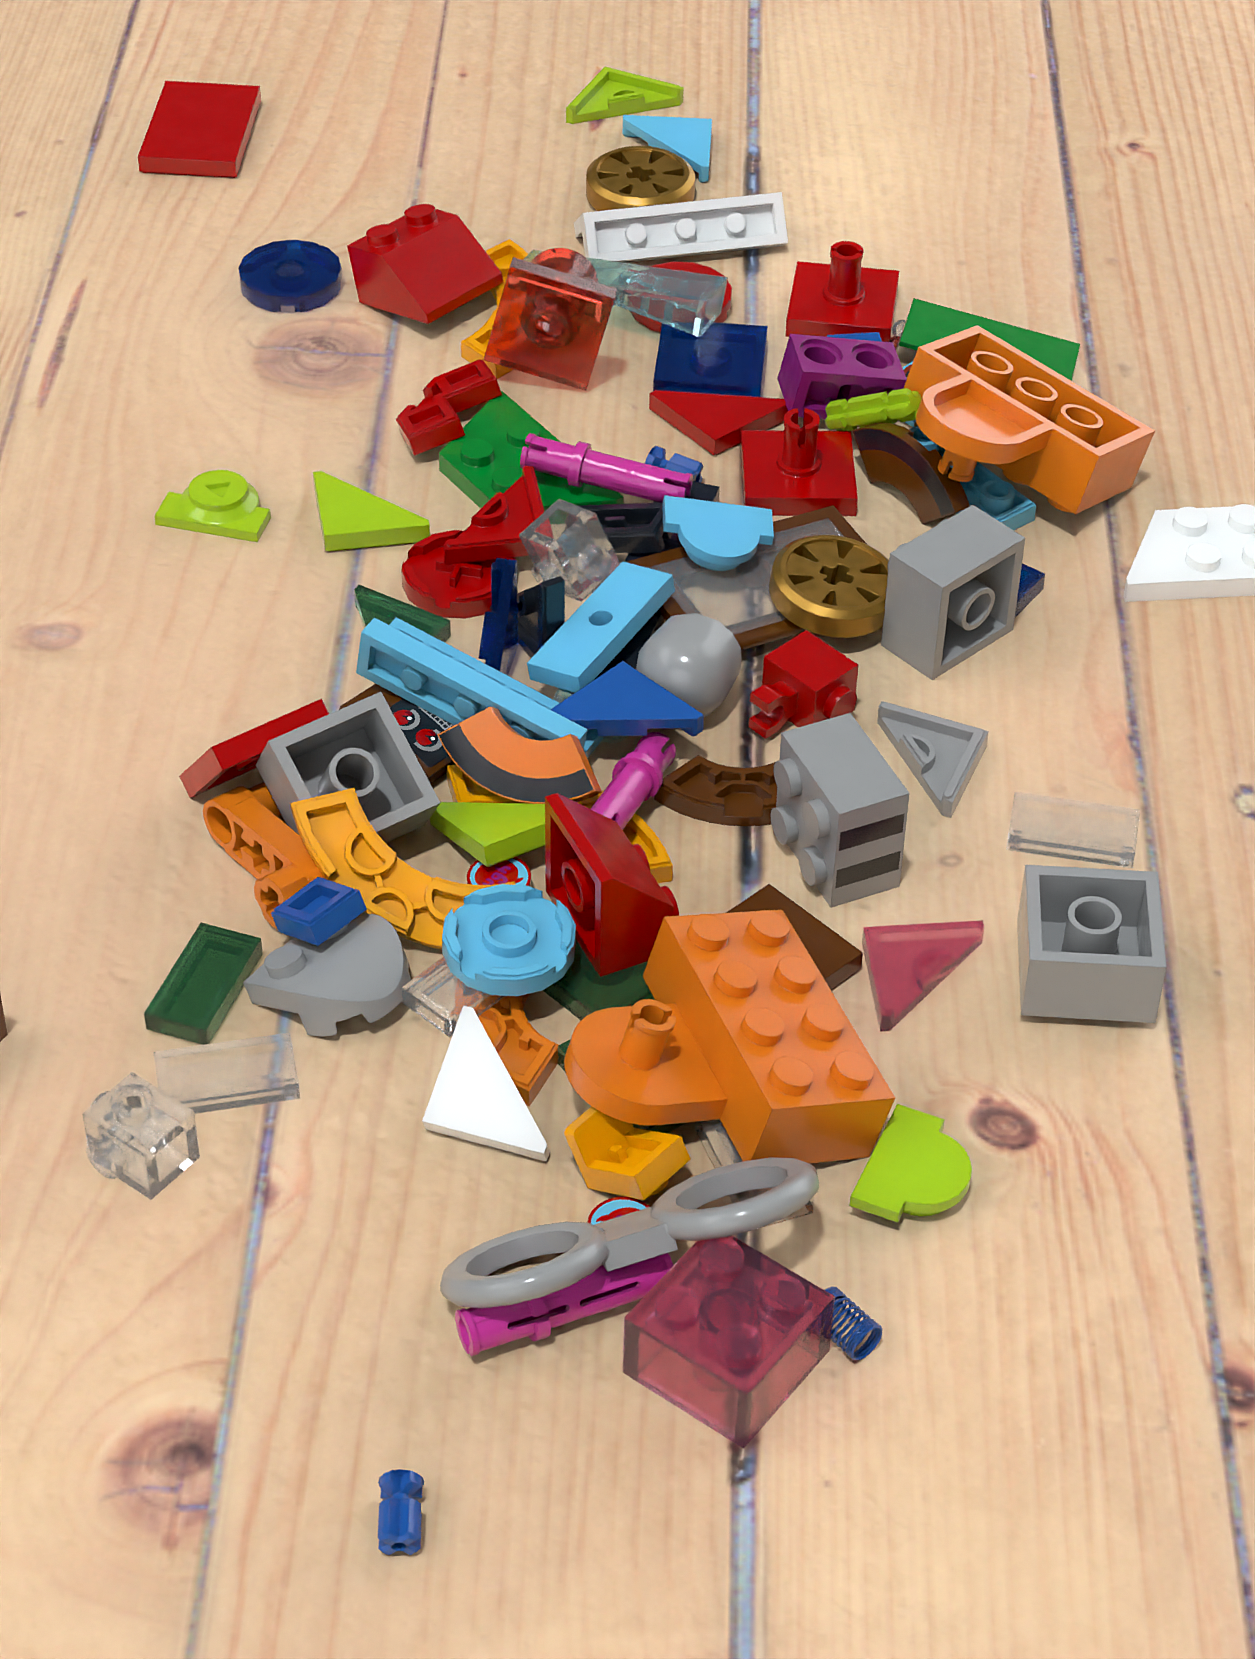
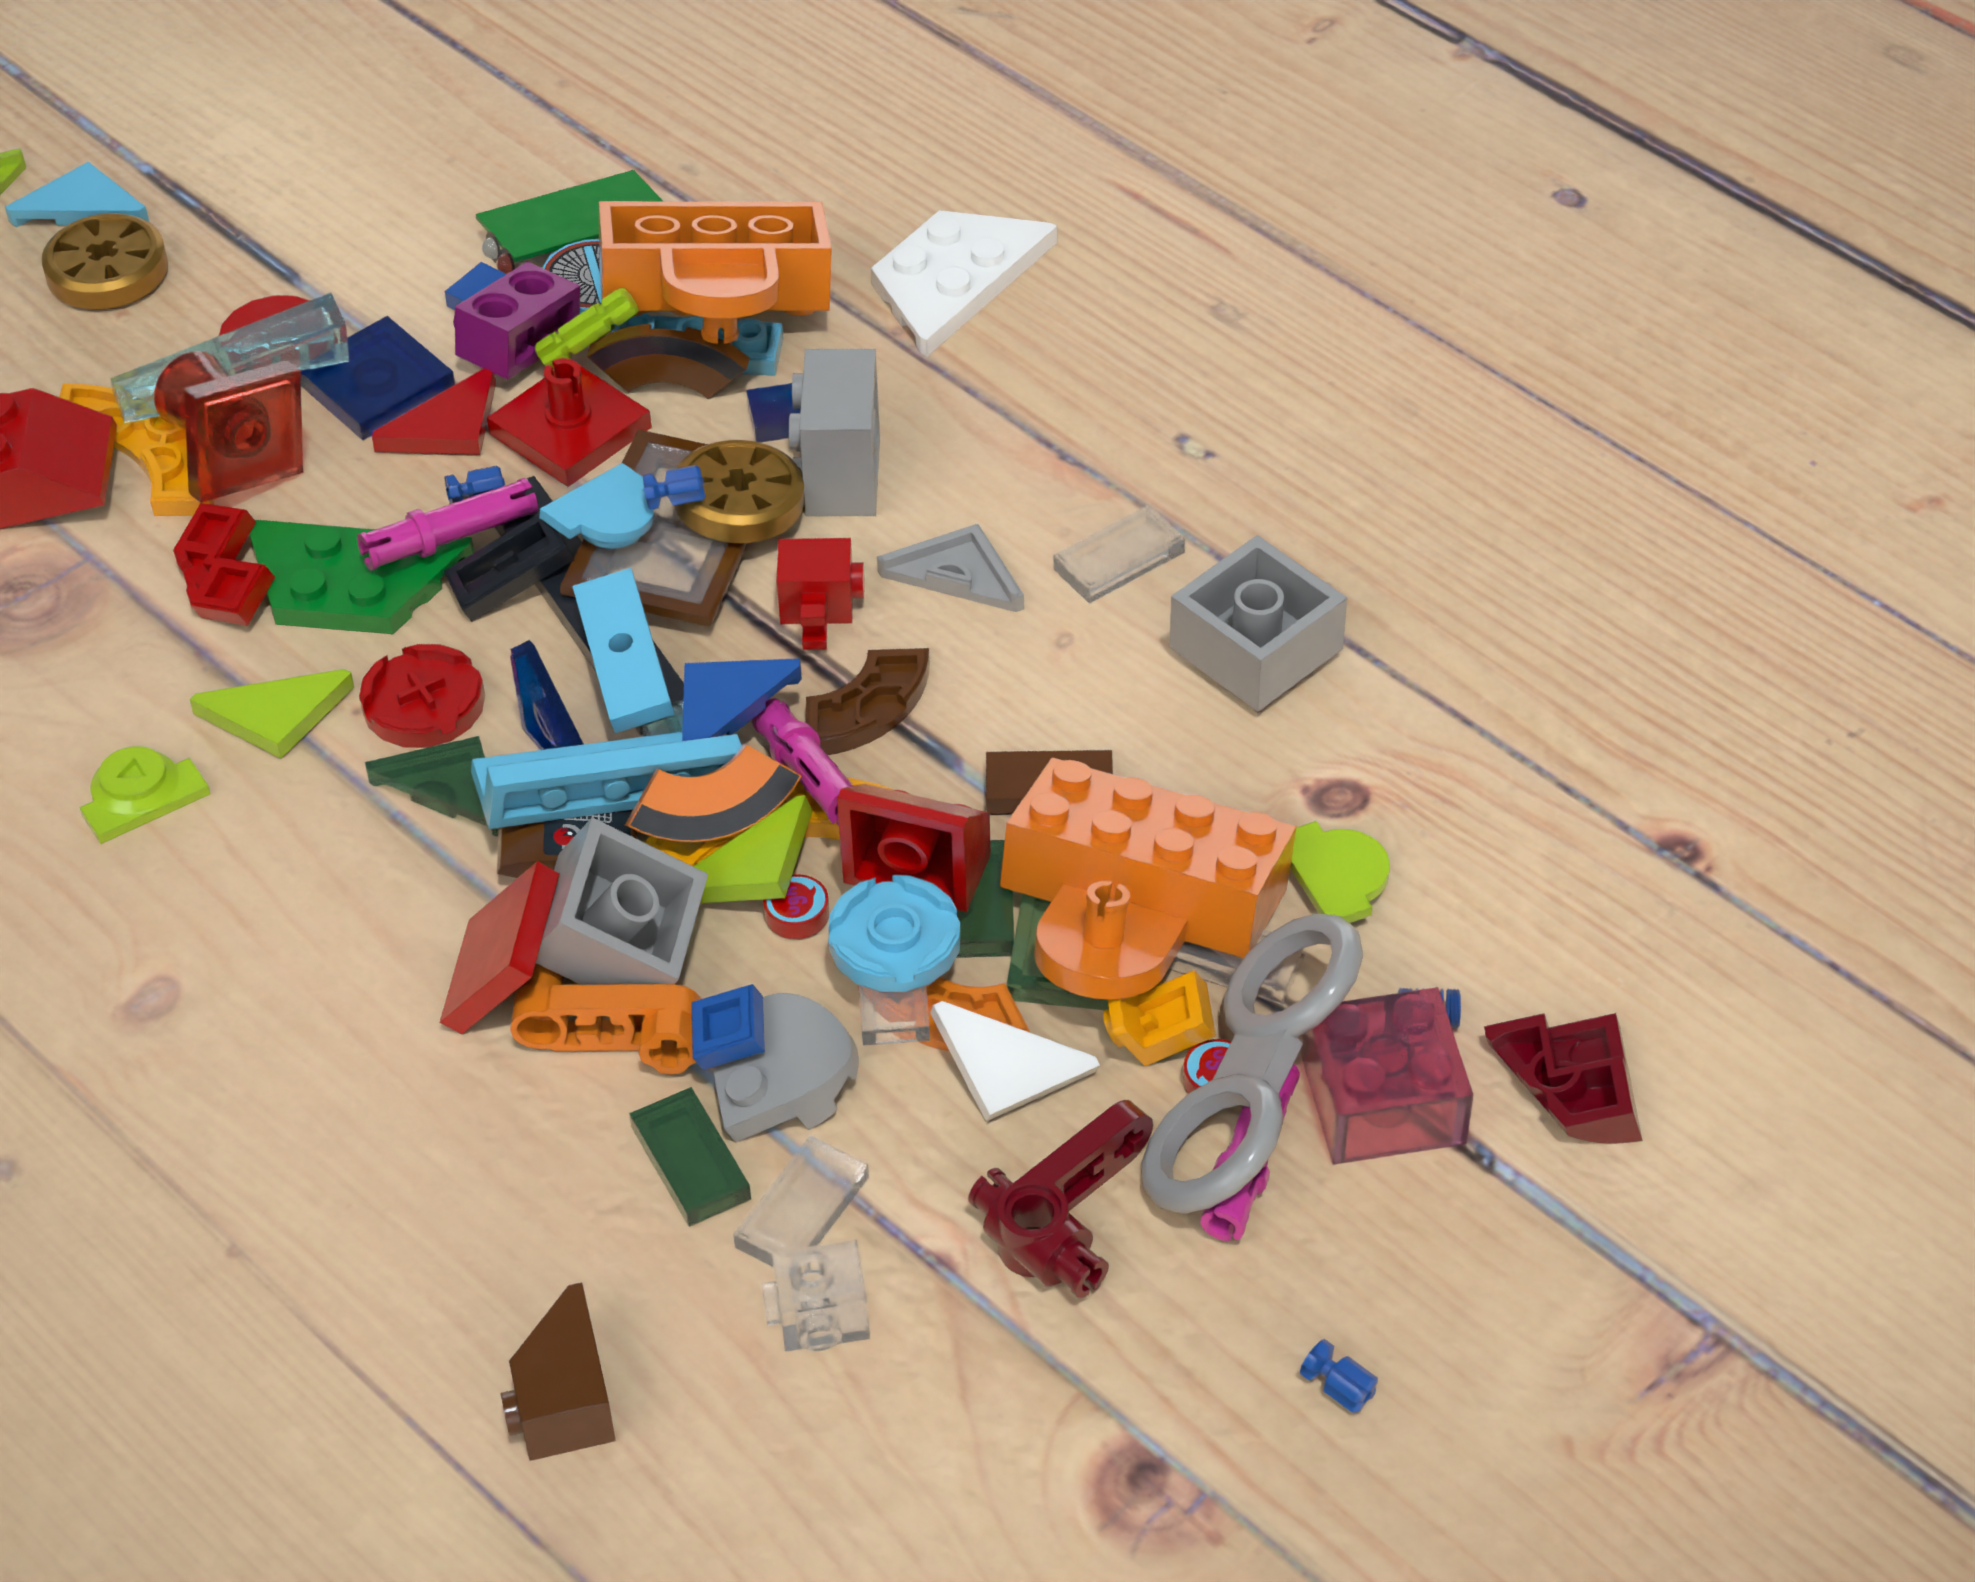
camera: 45 degrees left, 5 degrees up
(351, 1203) = (1052, 1189): none -> dark red piece
(357, 857) = (708, 963): light orange tile -> none
(498, 524) = (425, 624): red tile -> none
(540, 613) = (572, 672): black tile -> none
(570, 545) = (510, 606): clear brick -> none
(684, 228) = (200, 278): white fence -> none
(692, 660) = (722, 623): light grey helmet -> none
(775, 543) = (680, 486): none -> blue piece
(840, 810) = (985, 655): light grey brick -> none
(842, 296) = (409, 253): red tile -> none
(892, 1473) = (1574, 1073): none -> dark red slope
(912, 961) = (1142, 734): clear pink tile -> none

